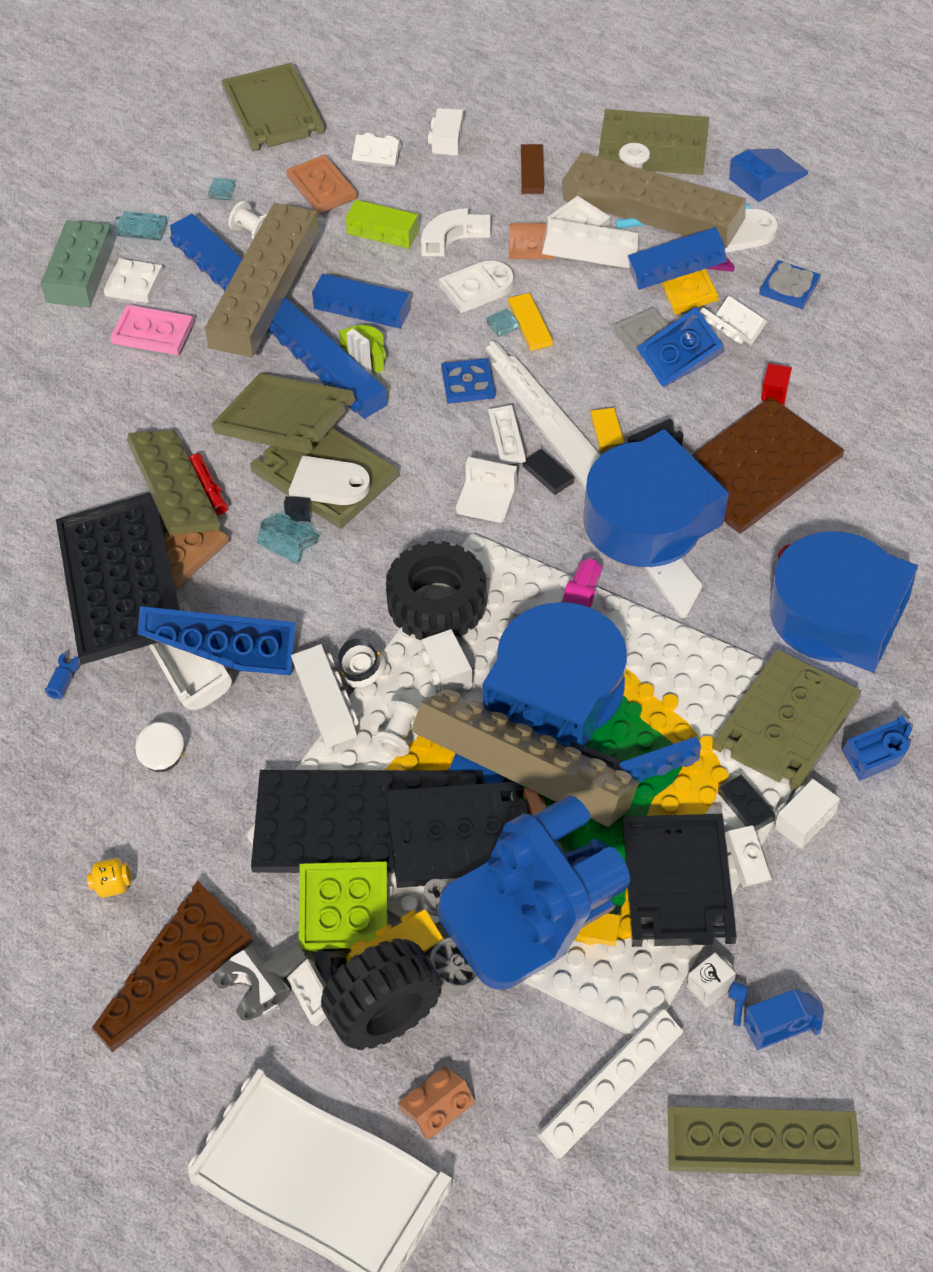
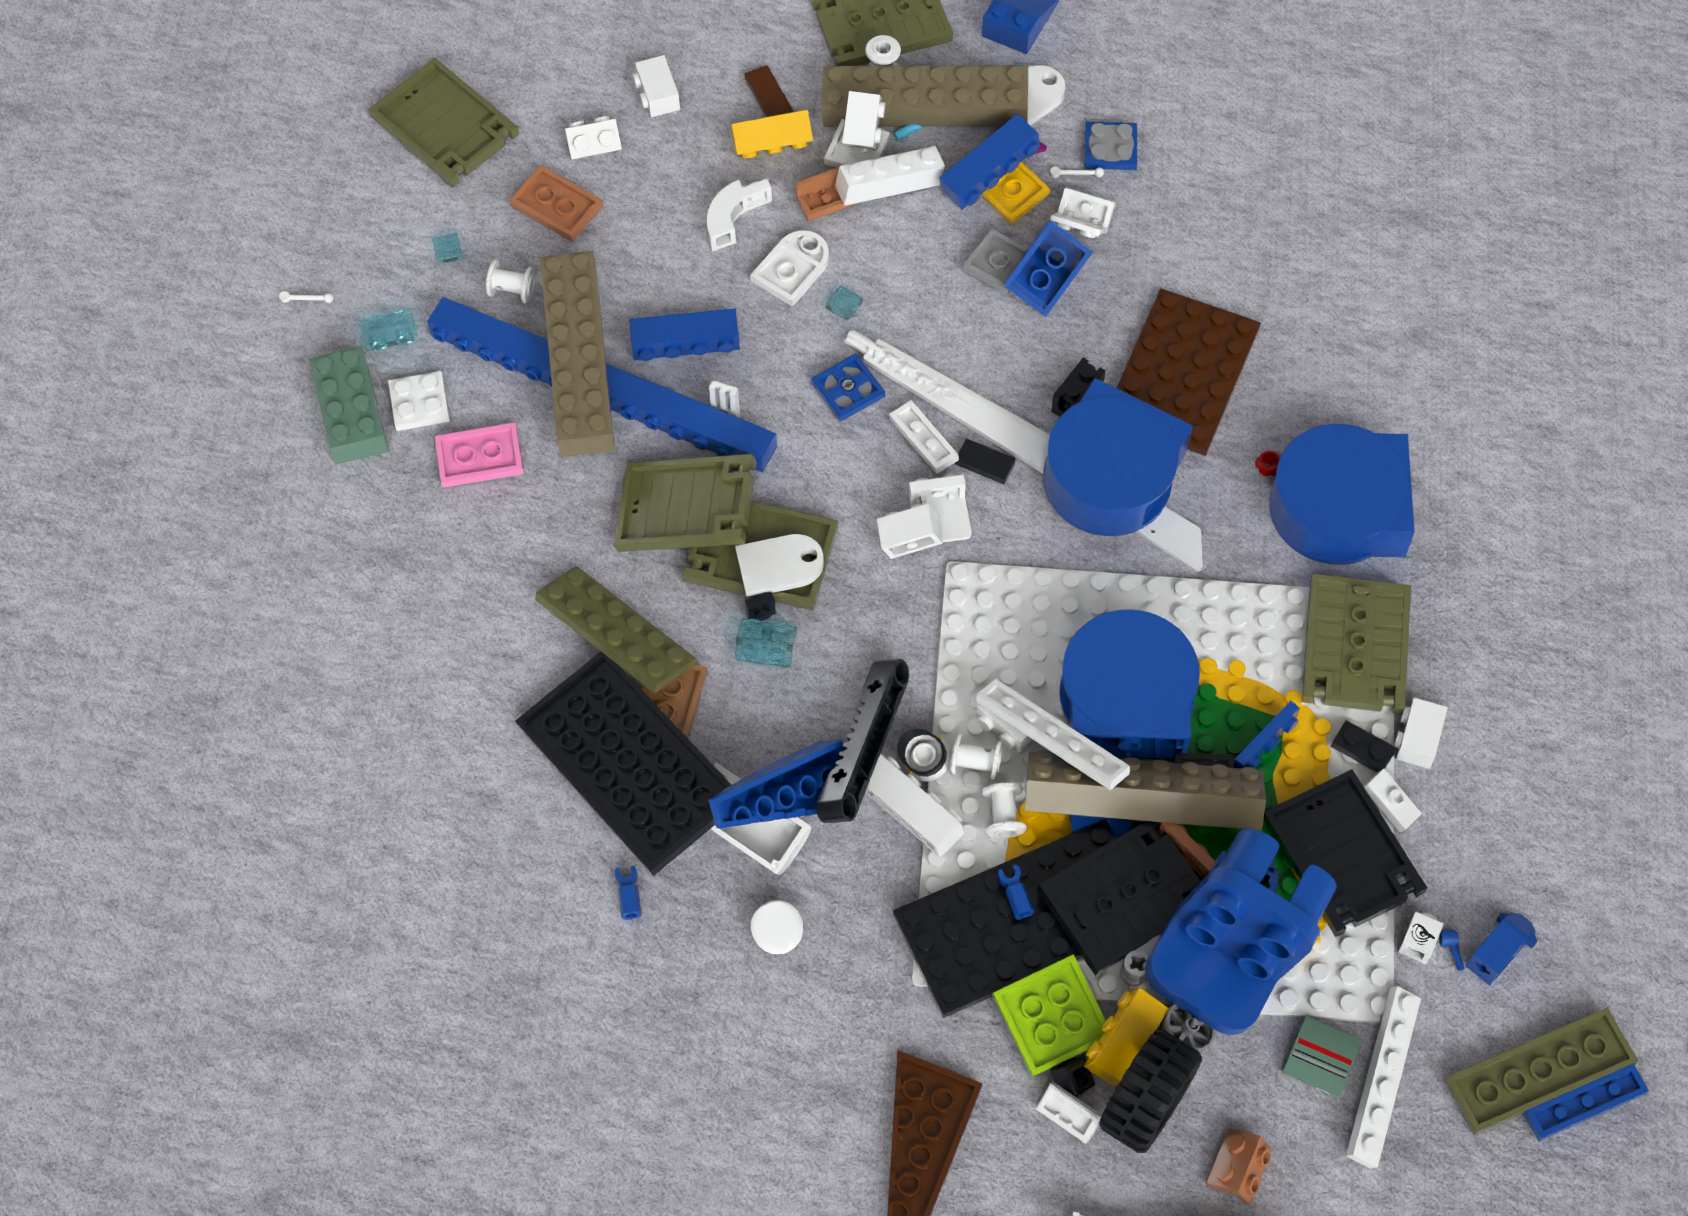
camera: 25 degrees left, 10 degrees up
(84, 182) = (285, 297): none -> white hinge
(109, 877) = (811, 1085): yellow head -> none
(210, 487) = (658, 619): red pin -> none
(262, 976) = (1014, 1117): dark grey connector -> none
(294, 643) = (850, 778): none -> black gear
(366, 795) = (1016, 893): none -> blue bar
(376, 344) = (699, 385): lime brick -> none
(382, 224) = (652, 230): lime brick -> none
(399, 679) = (976, 757): none -> white hose
(433, 565) = (966, 614): black tyre -> none
(450, 495) = (909, 530): none -> white brick
(465, 677) = (1053, 734): none -> white plate
(514, 187) = (771, 133): none -> yellow brick
(530, 321) = (872, 289): yellow tile -> none
(564, 1042) = (1322, 1056): none -> sand green slope
(583, 586) = (1094, 584): dark pink piece -> none
(588, 195) = (863, 120): none -> white brick
(606, 428) = (1017, 389): yellow tile -> none
(732, 289) = (1056, 172): none -> white hinge
(776, 383) = (1159, 271): red brick -> none
(791, 1187) = (1586, 1102): none -> blue plate
(878, 748) = (1449, 644): blue piece -> none

